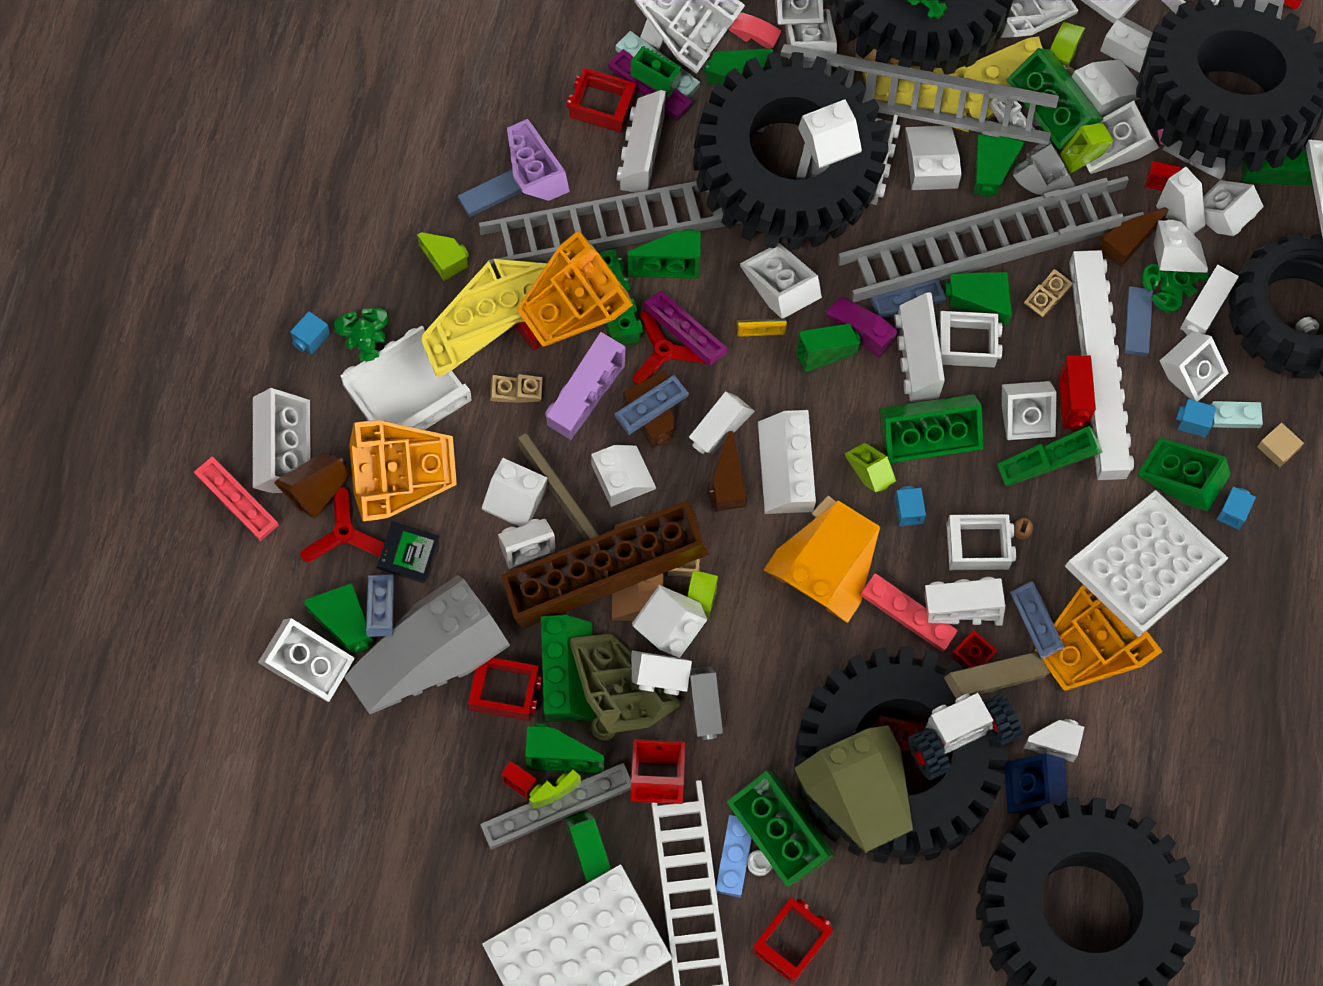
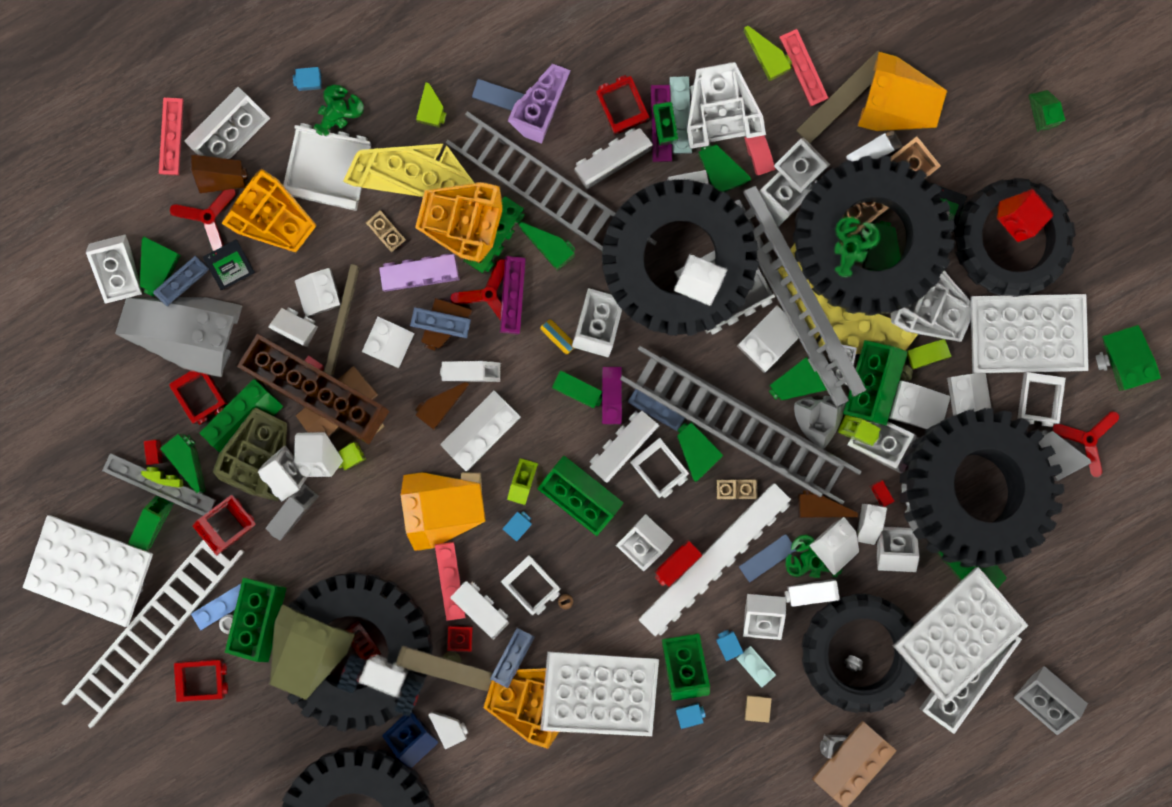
camera: 50 degrees right, 20 degrees up
(1050, 457) = (622, 581): green slope -> none

